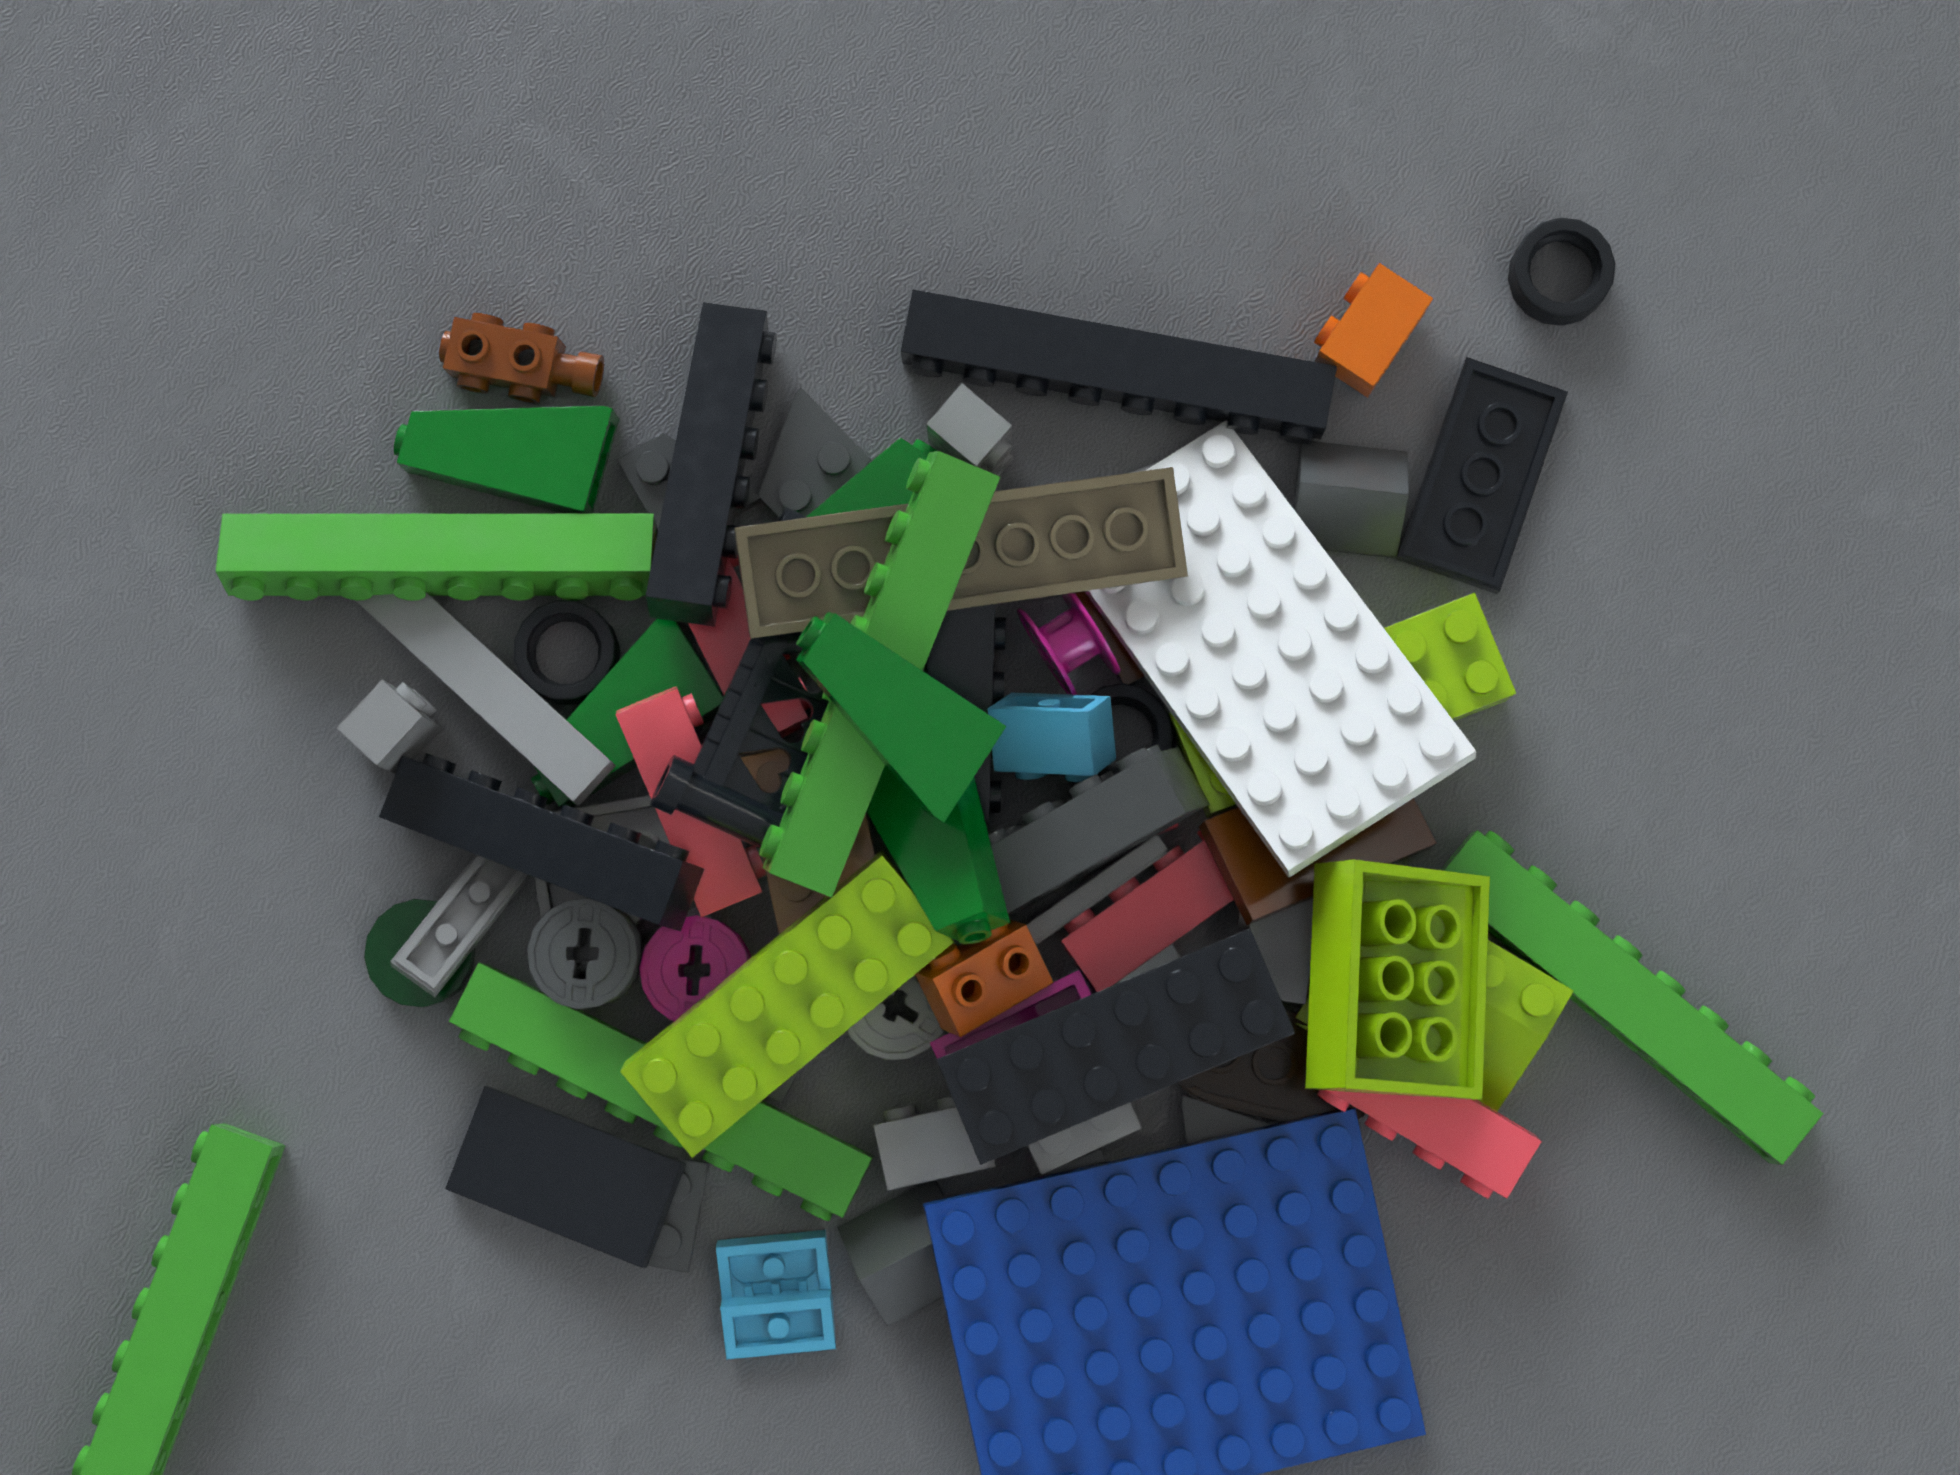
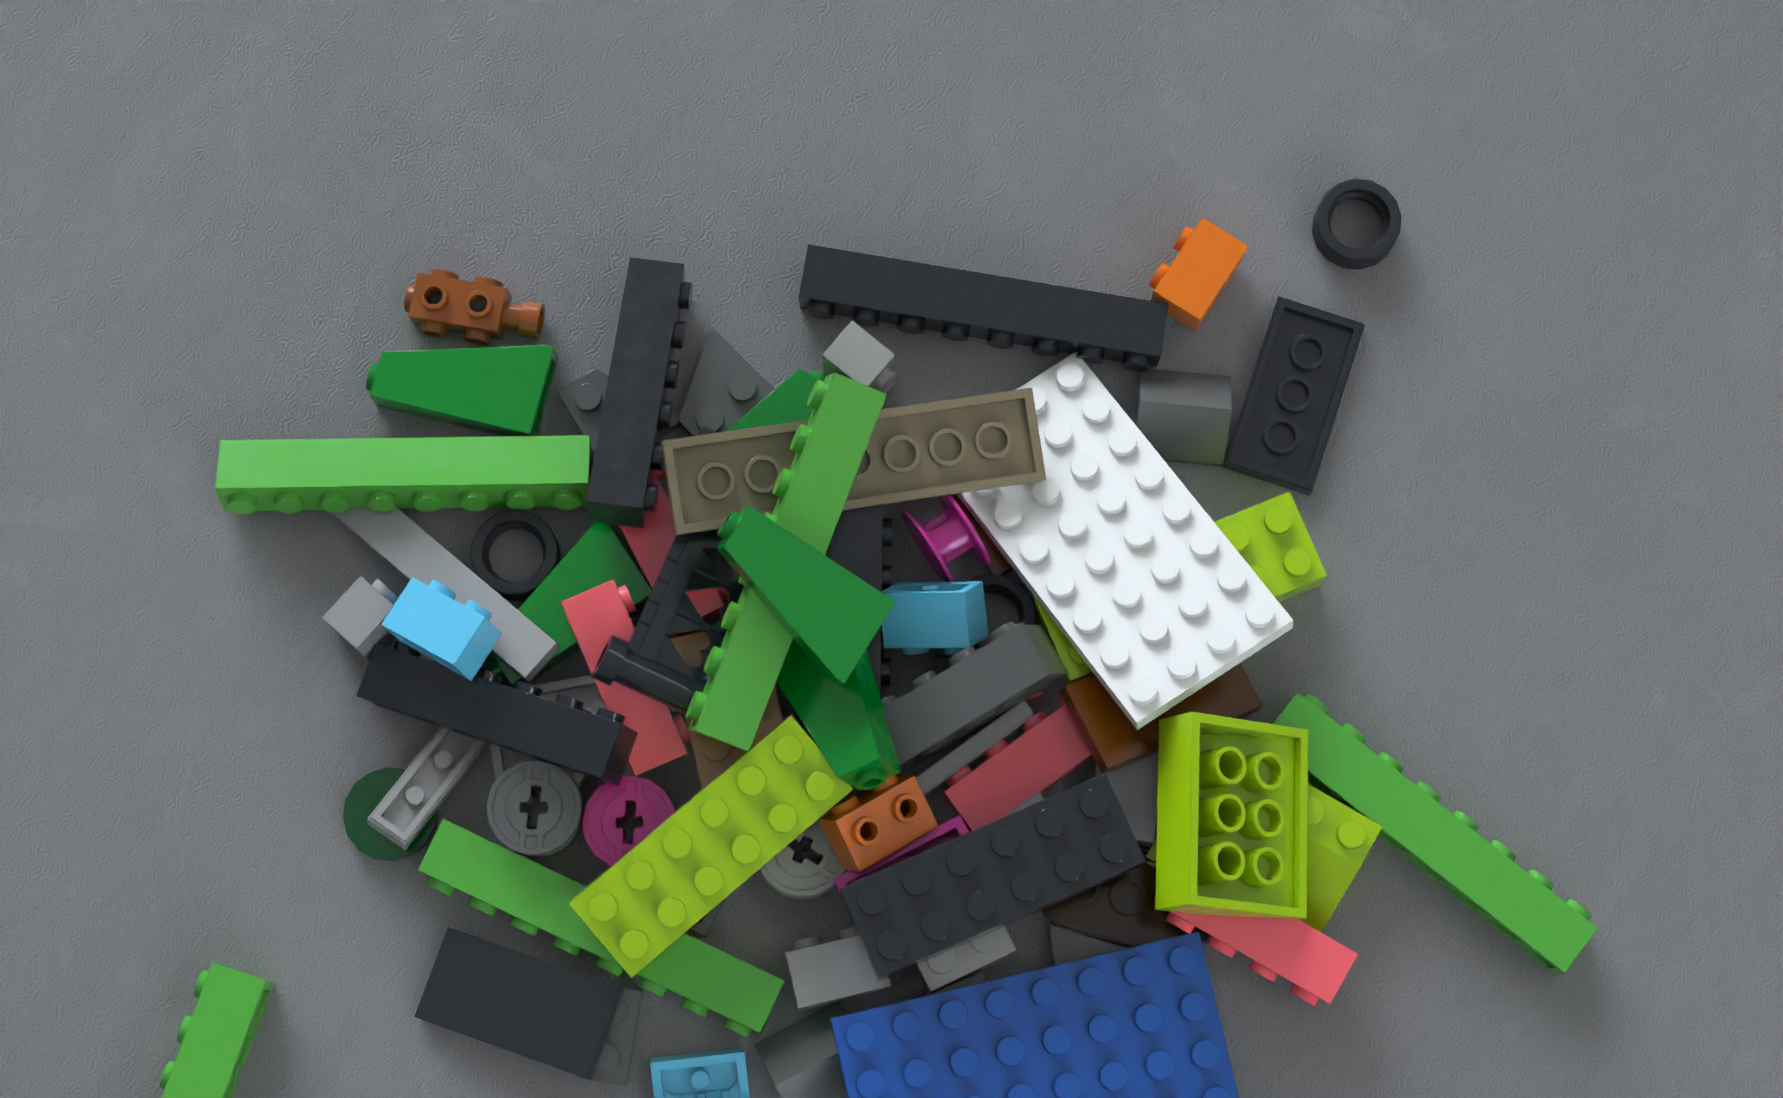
camera: 10 degrees left, 5 degrees down
(477, 742) = (443, 628): none -> medium azure brick

